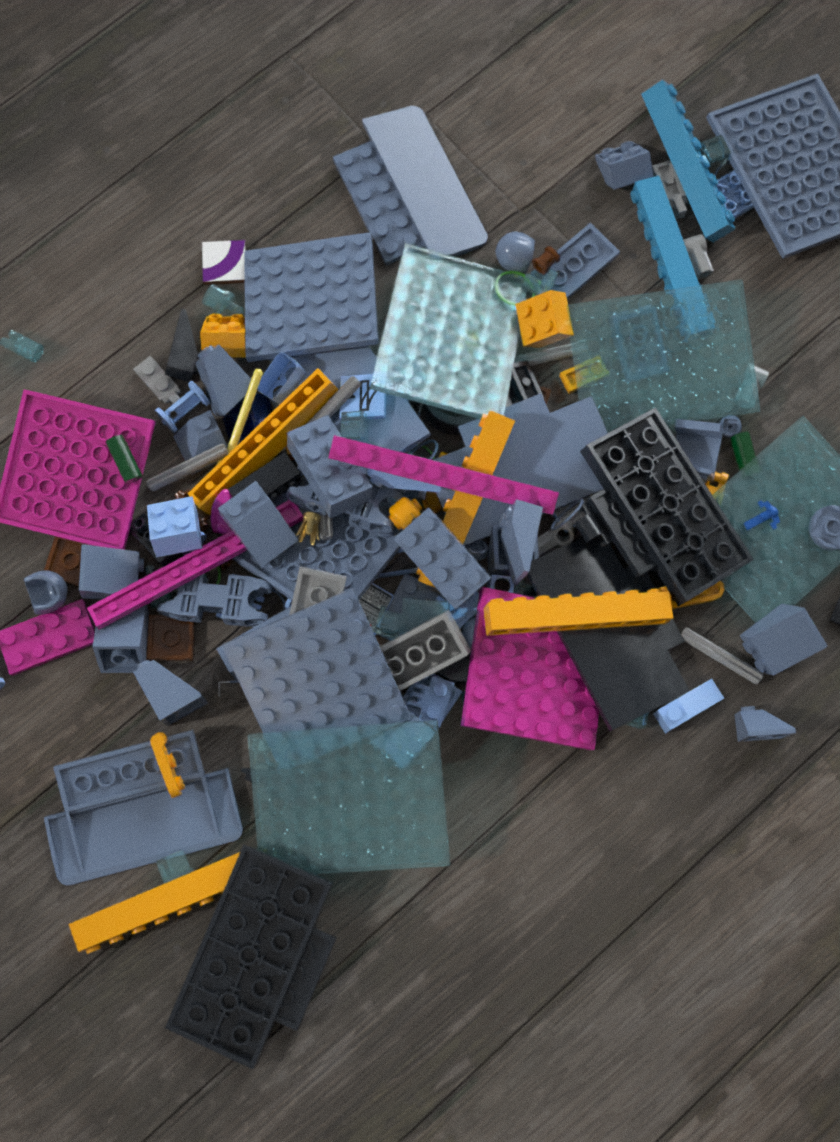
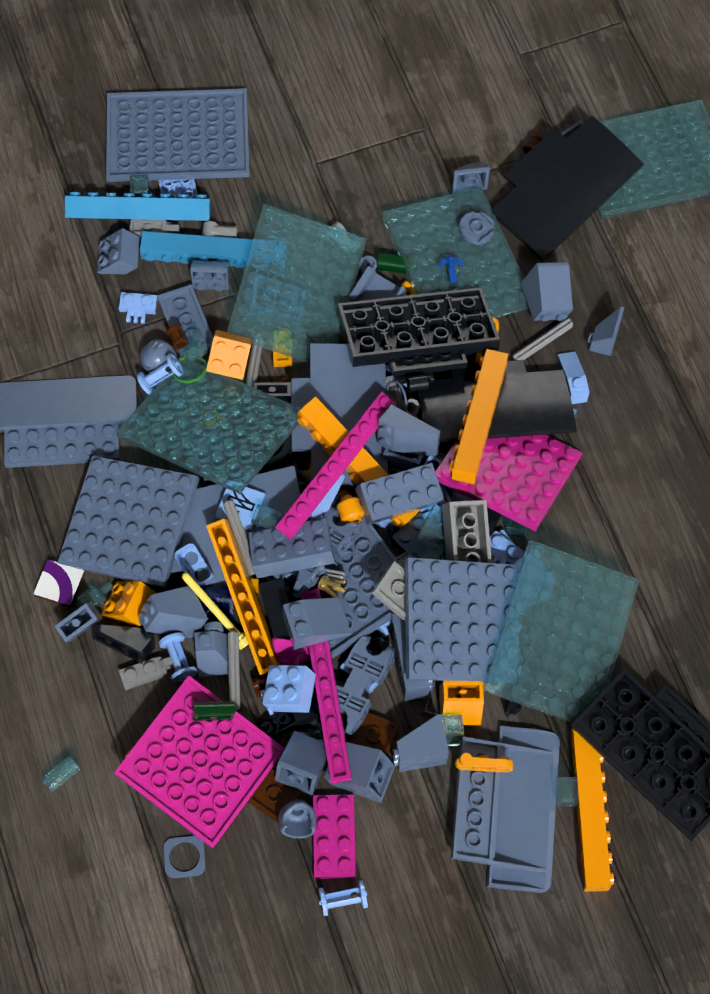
camera: 70 degrees left, 10 degrees down
(182, 294) = (78, 622): none -> sand blue brick
(200, 717) = (453, 729): none -> clear light blue brick
(226, 428) = (214, 626): none -> sand blue tile
(233, 717) = (462, 699): none -> light orange slope
(505, 268) = (148, 381): none -> light blue hose
(571, 210) = (137, 305): none -> light blue hinge
(639, 265) = (210, 275): none -> sand blue slope

